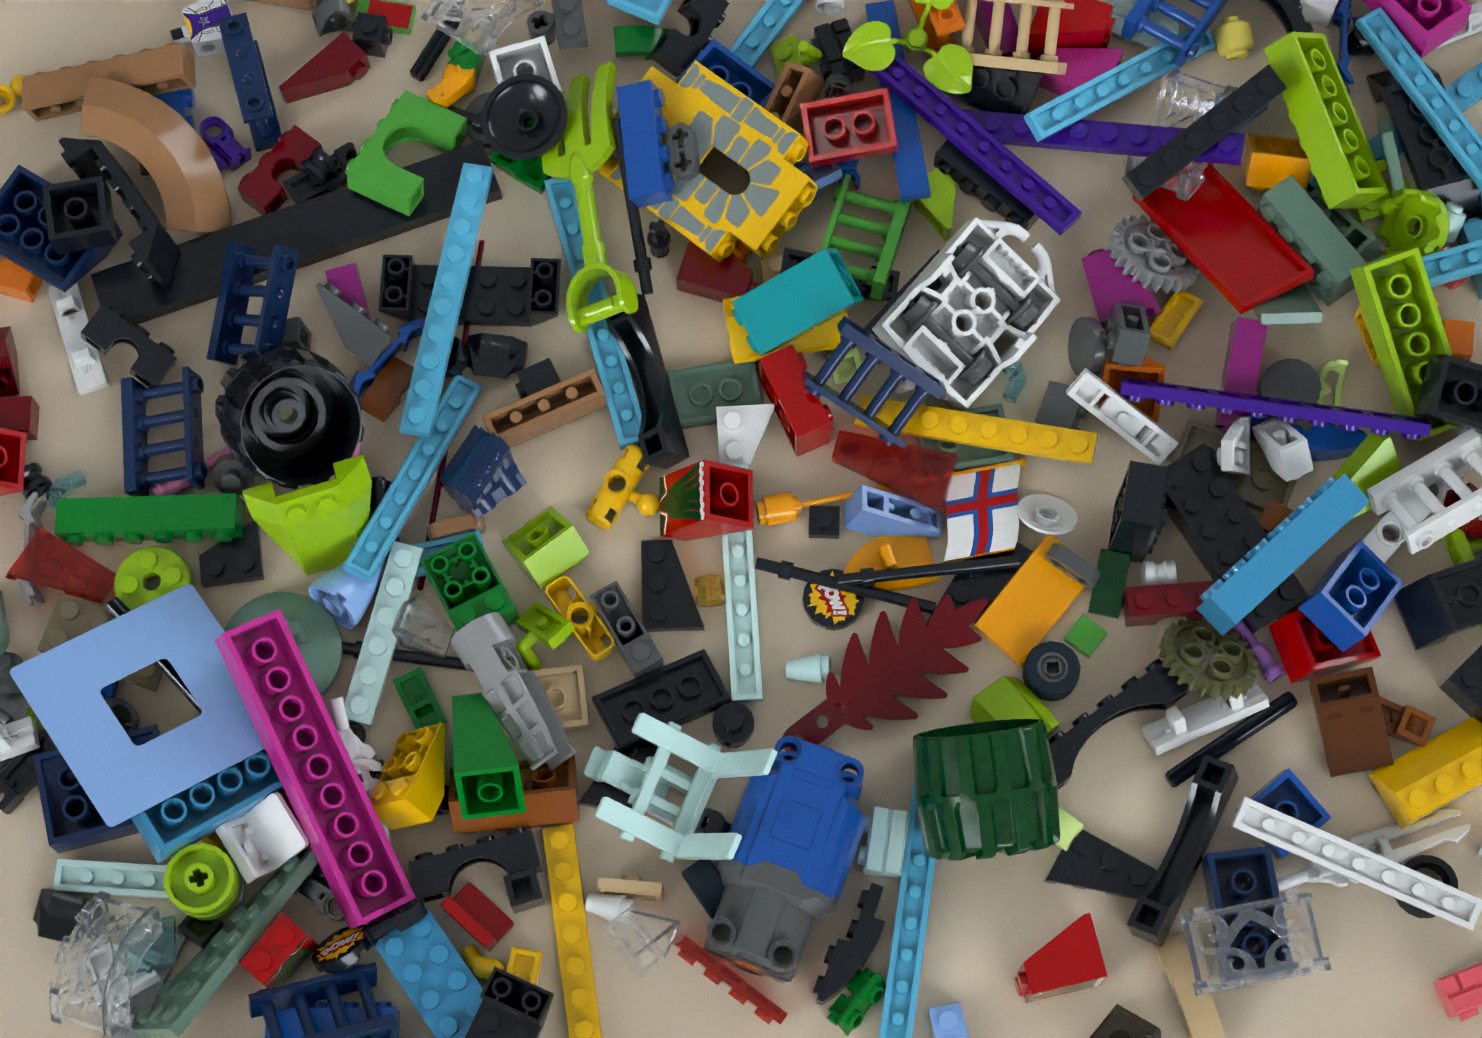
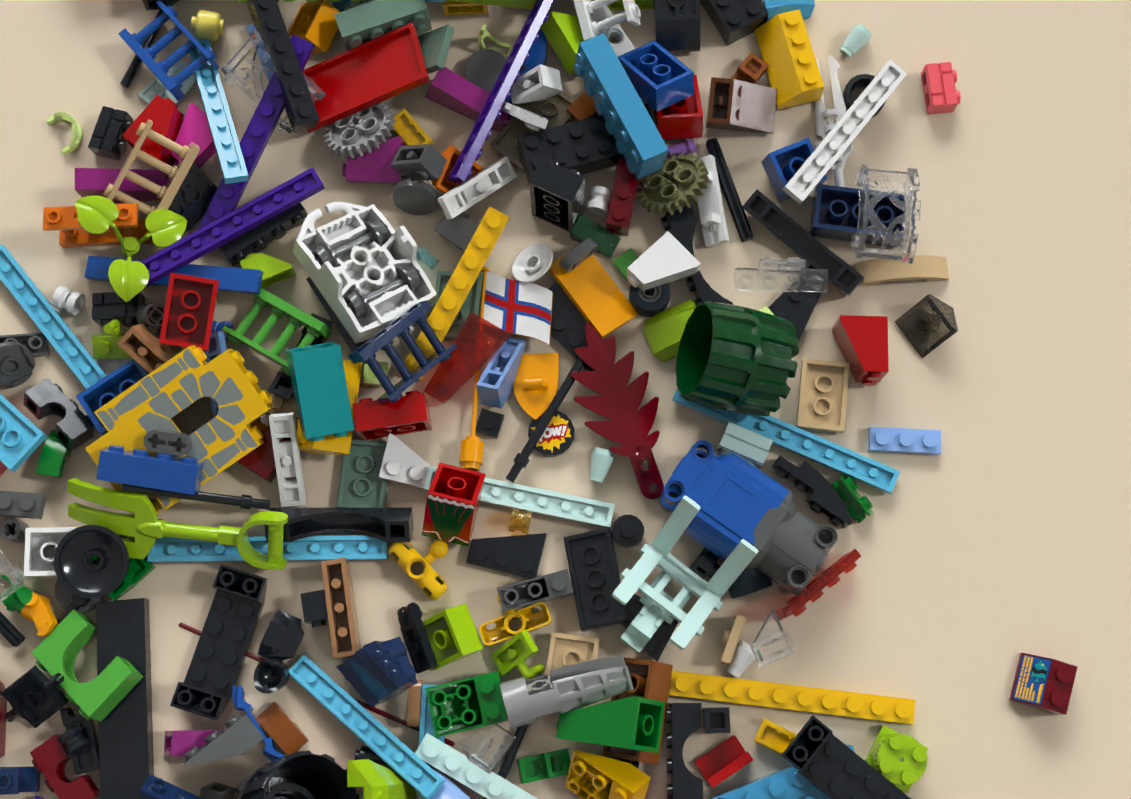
camera: 75 degrees left, 5 degrees up
(357, 109) = (34, 697): none -> black plate
(446, 301) = (225, 663): medium azure plate -> none
(480, 966) = (763, 767): yellow arm -> none
(533, 508) = (416, 638): none -> black hinge
(658, 239) = (228, 484): black axle -> none
(705, 295) = (287, 459): none -> white hinge
(868, 576) = (546, 399): black bar -> none
(983, 929) = (822, 395): none -> tan plate
(1090, 668) = (662, 263): none -> white slope
(1128, 832) = (781, 276): none -> clear bracket

